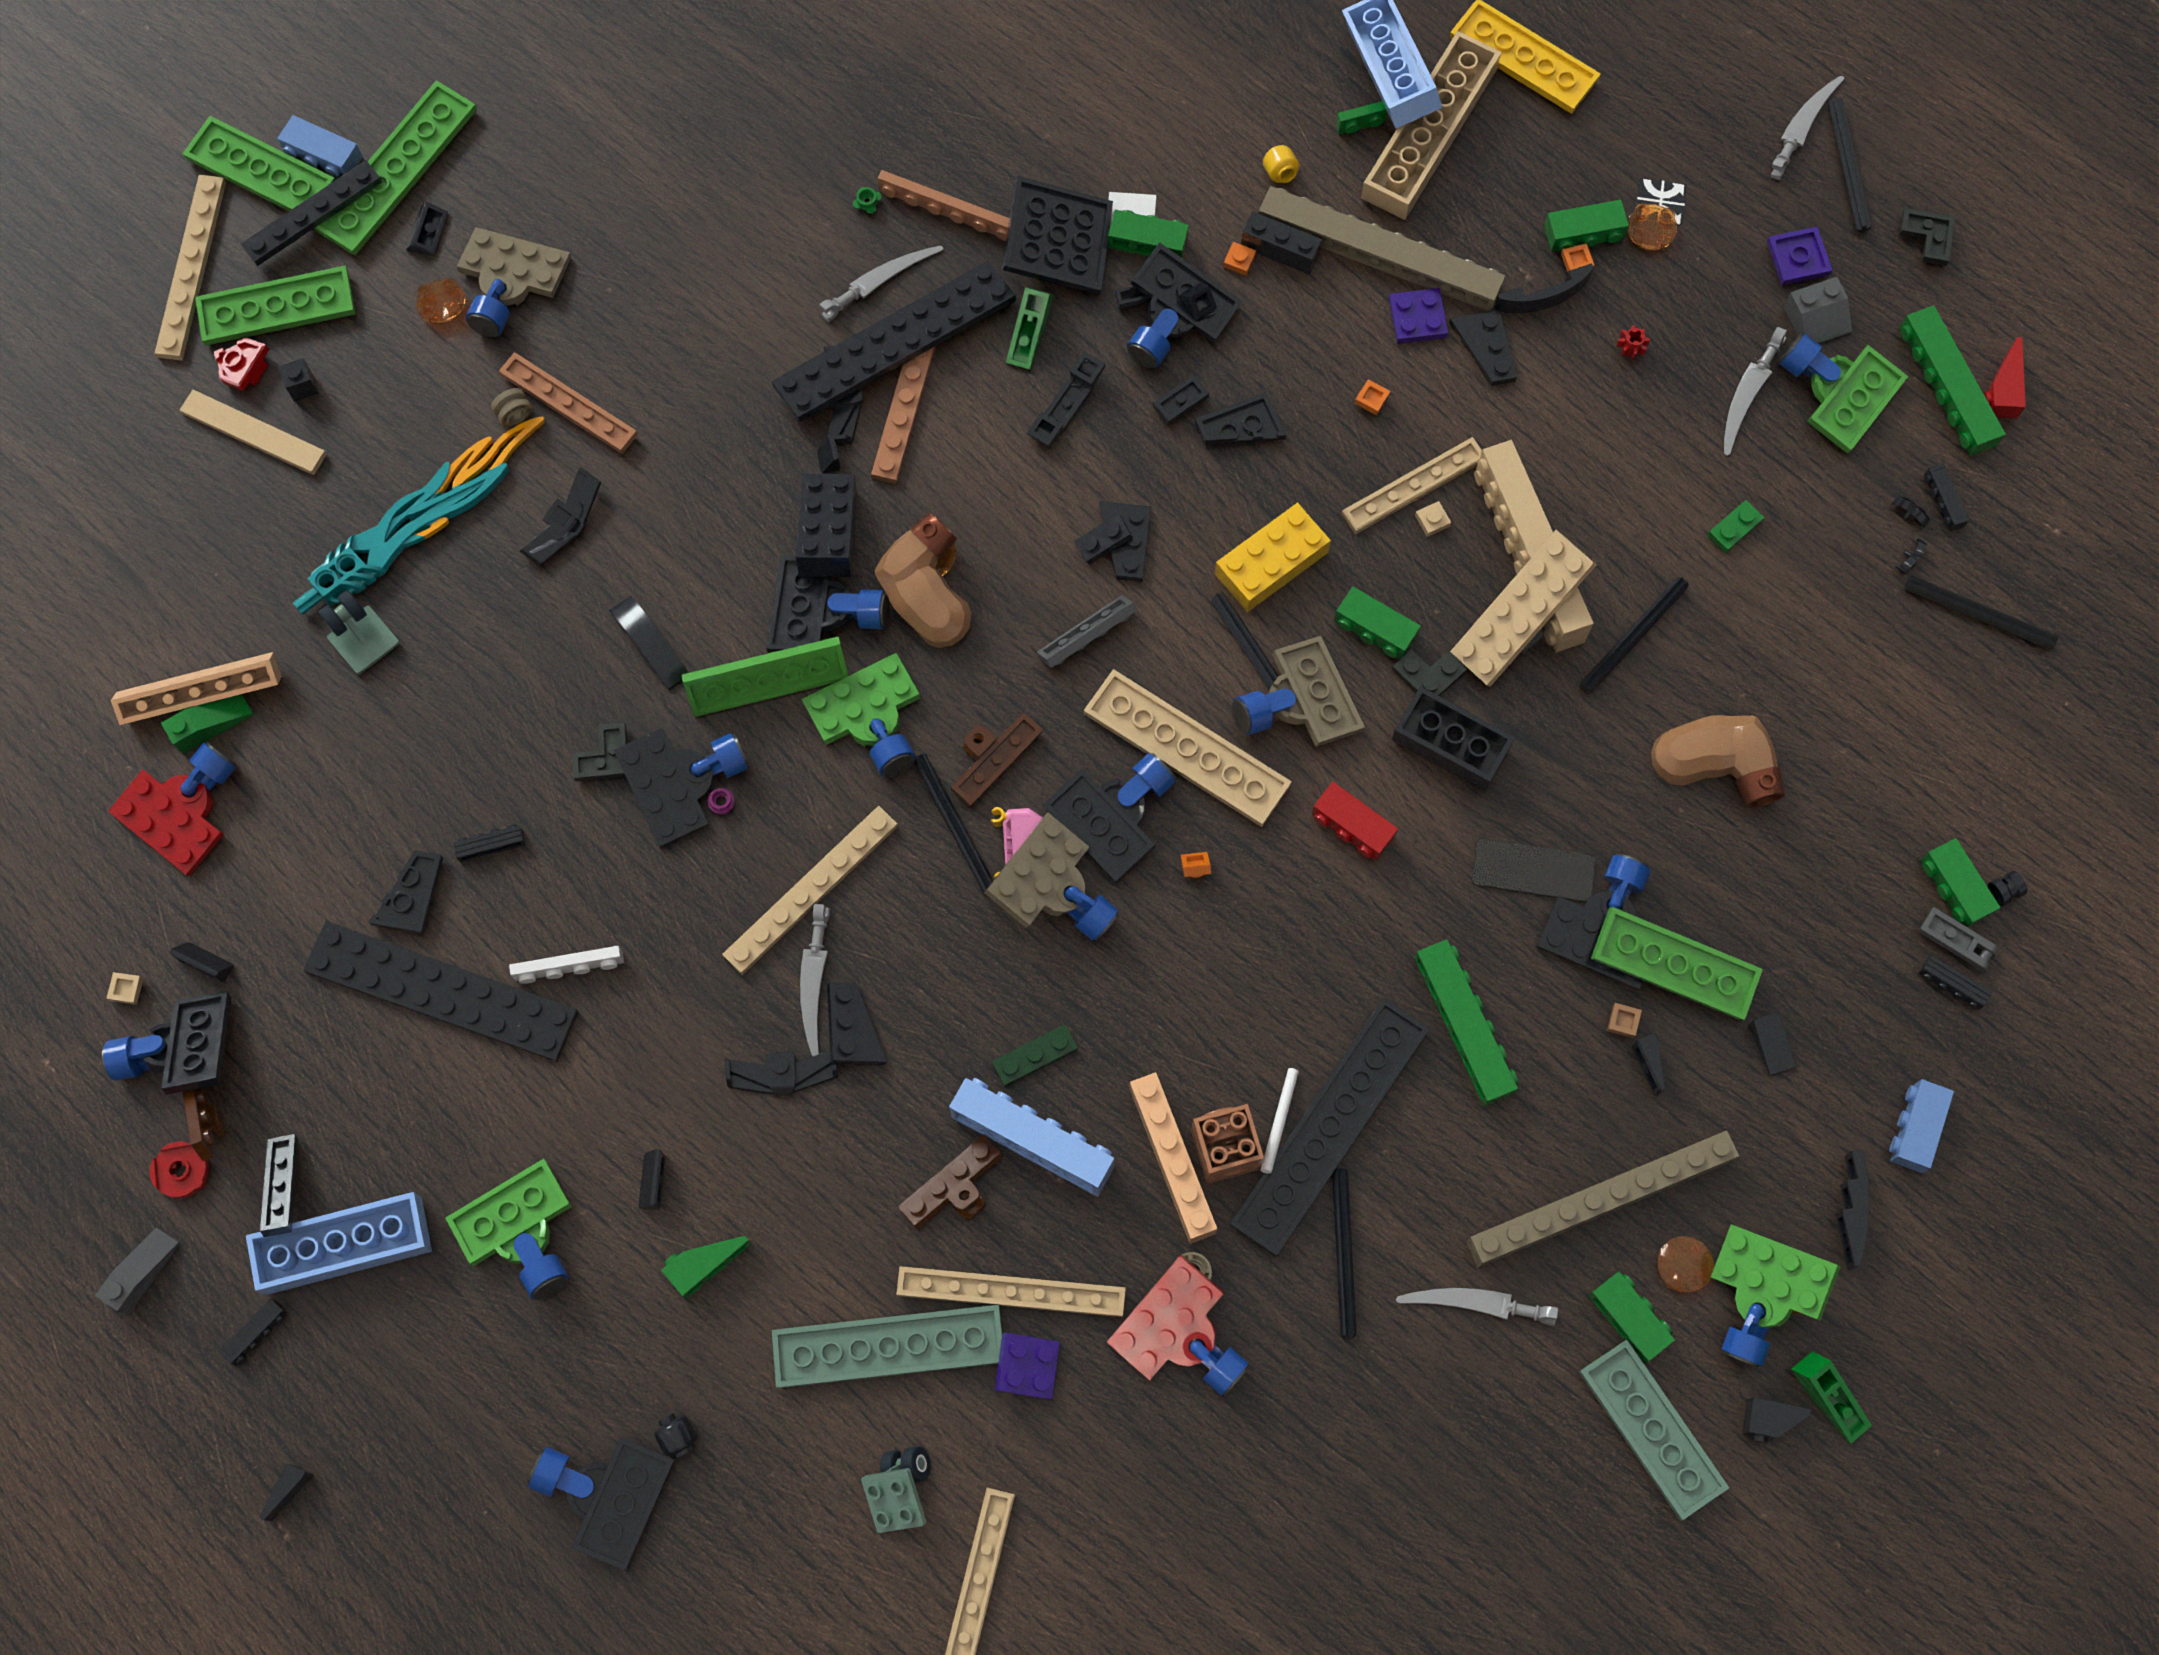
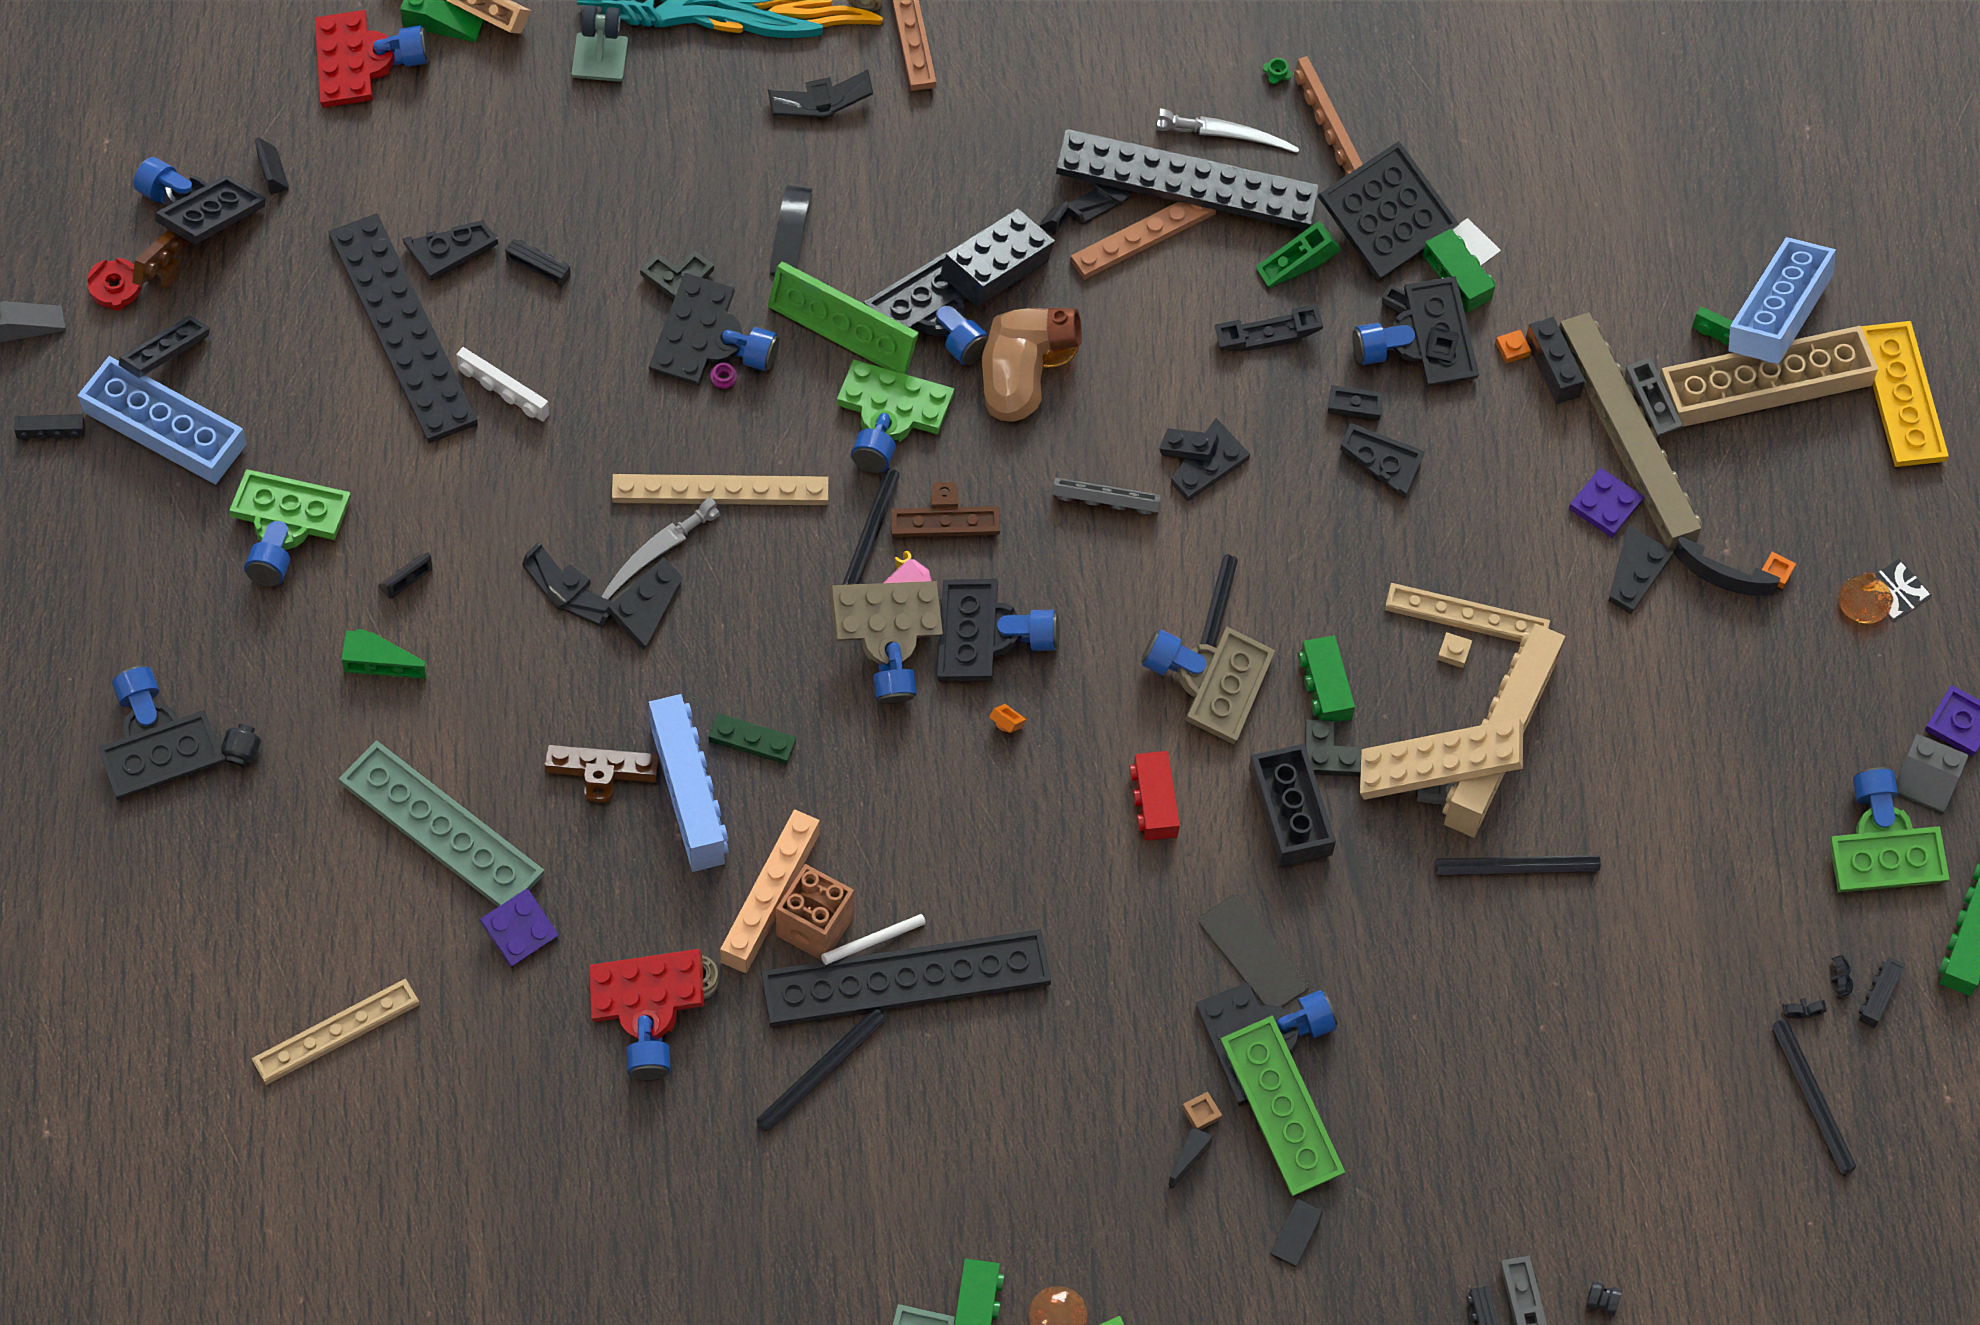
camera: 40 degrees right, 10 degrees down
(125, 988) = (204, 138): tan plate -> none
(893, 1491) = (339, 915): sand green plate -> none
(1011, 1291) = (563, 872): tan plate -> none
(1187, 747) = (1091, 638): tan plate -> none
(1272, 557) = (1299, 566): yellow brick -> none
(1281, 164) = (1618, 306): yellow head -> none
(1372, 397) = (1503, 526): orange plate -> none
(1376, 209) = (1652, 396): none -> dark grey slope
(1466, 1023) = (1082, 1002): green brick -> none
(1481, 1300) = (883, 1197): light grey sword -> none
(1586, 225) = (1811, 552): green brick -> none
(1602, 1199) = (1046, 1210): dark tan brick -> none
(1633, 342) = (1753, 664): red gear -> none
(1718, 748) = (1489, 997): medium nougat piece -> none
(1735, 526) = (1686, 863): green plate -> none
(1749, 387) = (1812, 777): light grey sword -> none
(1959, 883) = (1568, 1260): green brick -> none

